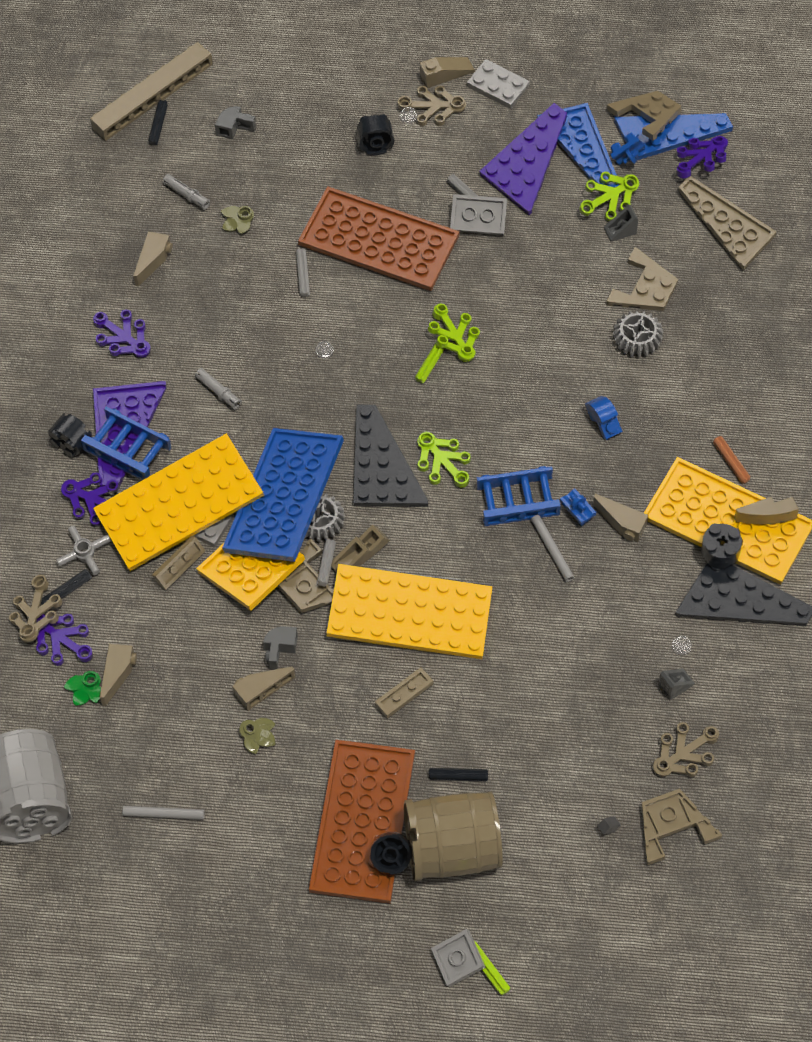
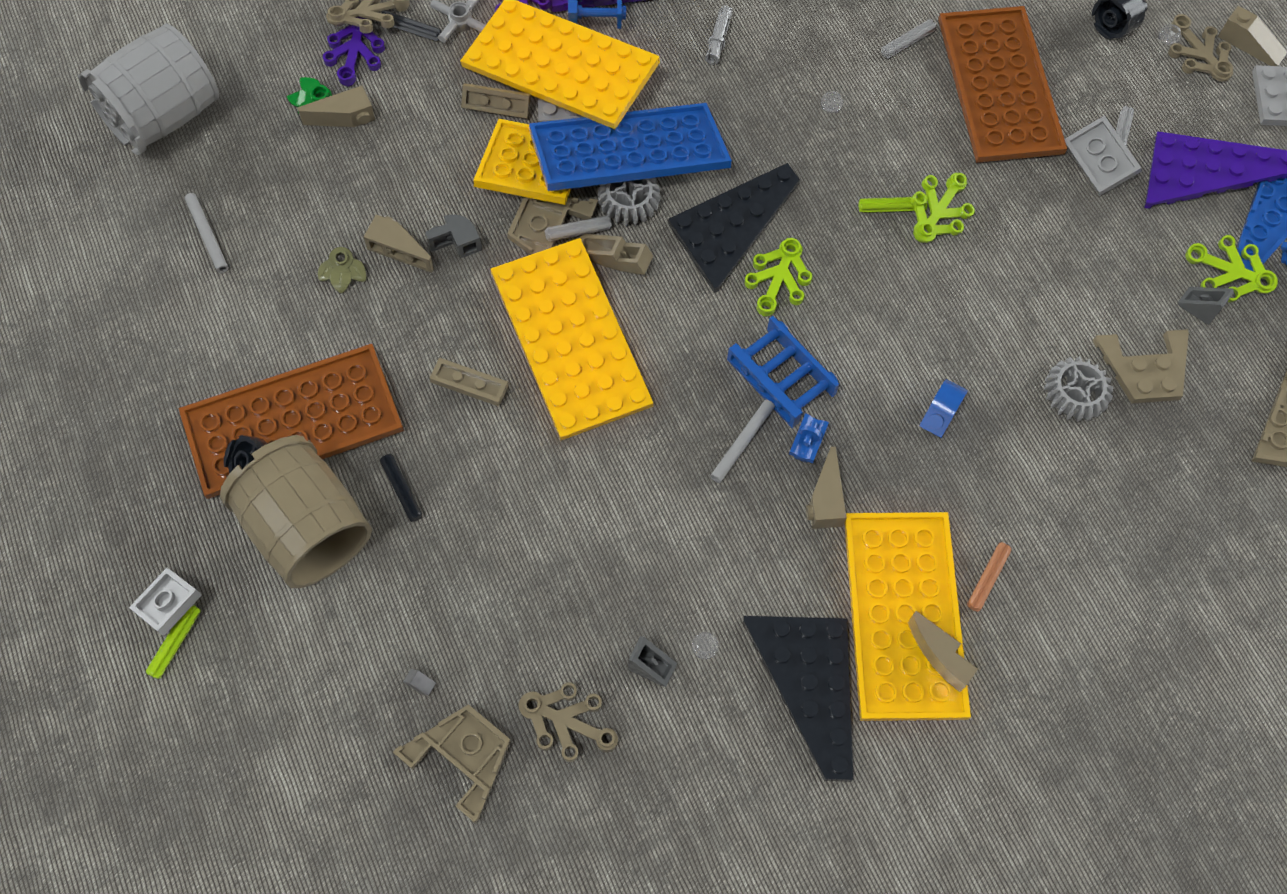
camera: 55 degrees right, 5 degrees up
(721, 545) = (864, 607): black brick -> none

